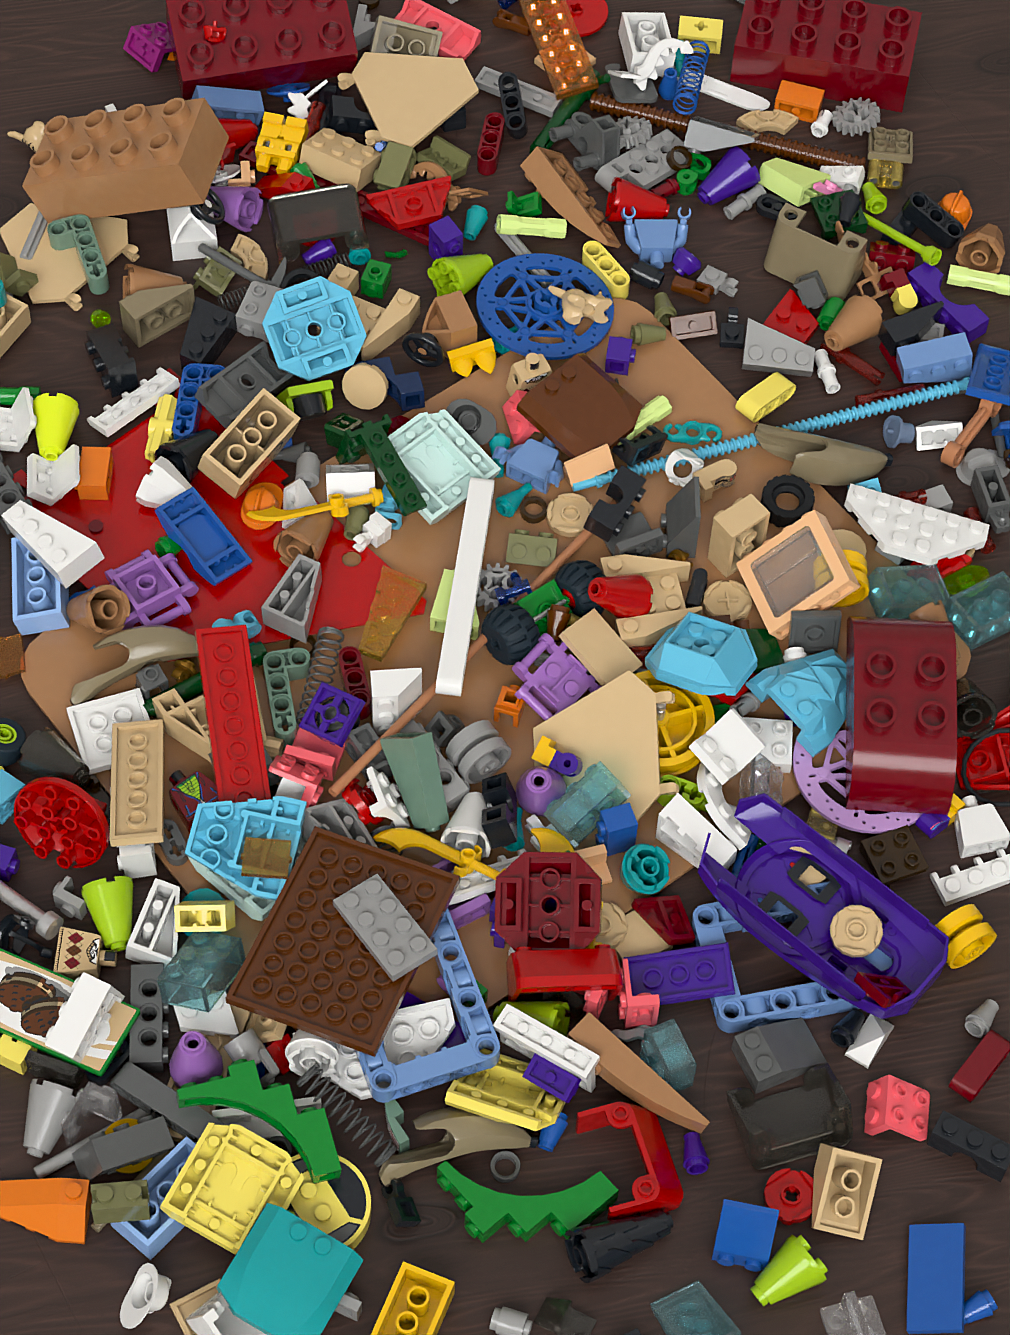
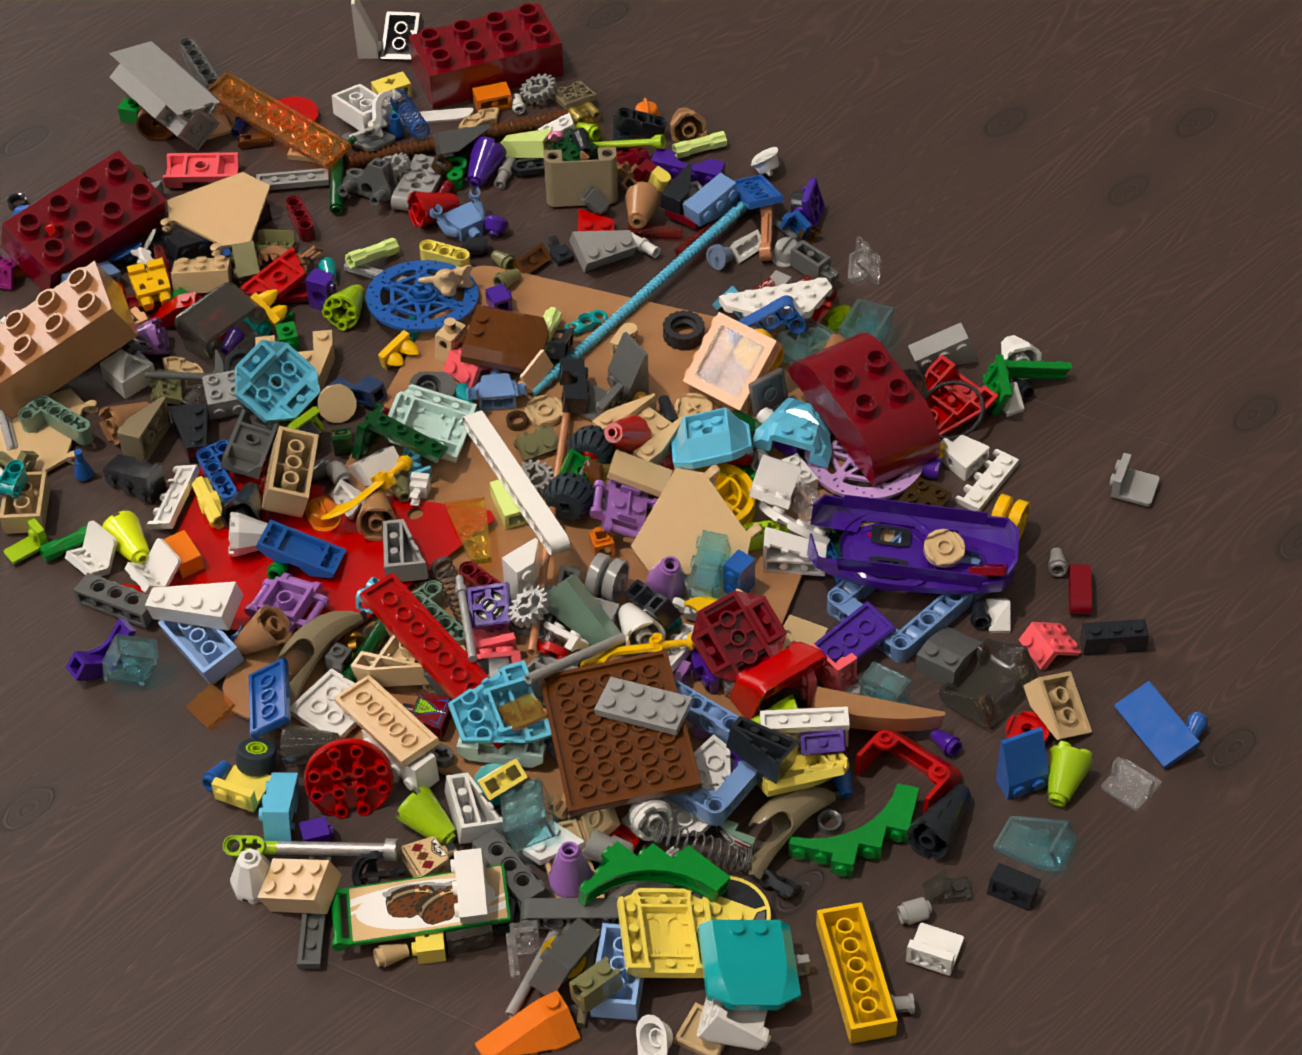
camera: 30 degrees left, 10 degrees down
(44, 1115) = (490, 969): light grey cone -> none
(54, 686) = (269, 698): none -> blue tile
(68, 903) = (389, 830): light grey bracket -> none
(71, 320) = (82, 468): none -> blue cone
(101, 316) = (102, 458): clear neon green hinge -> none
(317, 678) = (461, 594): none -> light grey bar
(364, 741) = (530, 606): none -> light grey gear
(366, 828) = (574, 658): none -> light grey piece
(375, 226) = (266, 299): none -> yellow tile
(404, 38) = (186, 179): dark tan slope -> none
(445, 328) = (366, 339): medium nougat piece -> none
(468, 1051) = (762, 748): none -> black wedge
(509, 503) = (499, 421): teal cone -> none
(510, 96) = (294, 180): black beam -> none
(518, 588) = (545, 476): clear blue piece -> none
(524, 206) = (357, 241): green bracket -> none
(562, 762) = (656, 554): leg -> none
(567, 194) = (374, 222): medium nougat wedge -> none
(645, 869) = (777, 588): teal cone -> none
(666, 918) = (811, 613): dark red wing -> none
(677, 455) = (589, 338): white piece -> none
(695, 290) = (517, 239): reddish brown bar -> none
(719, 281) = (524, 228): light grey plate -> none
(737, 532) = (673, 359): tan brick -> none
(765, 397) = (617, 277): light yellow beam -> none
(822, 458) = (676, 293): dark tan piece -> none
(829, 312) = (618, 210): green brick -> none
(889, 543) = (779, 314): none -> blue beam

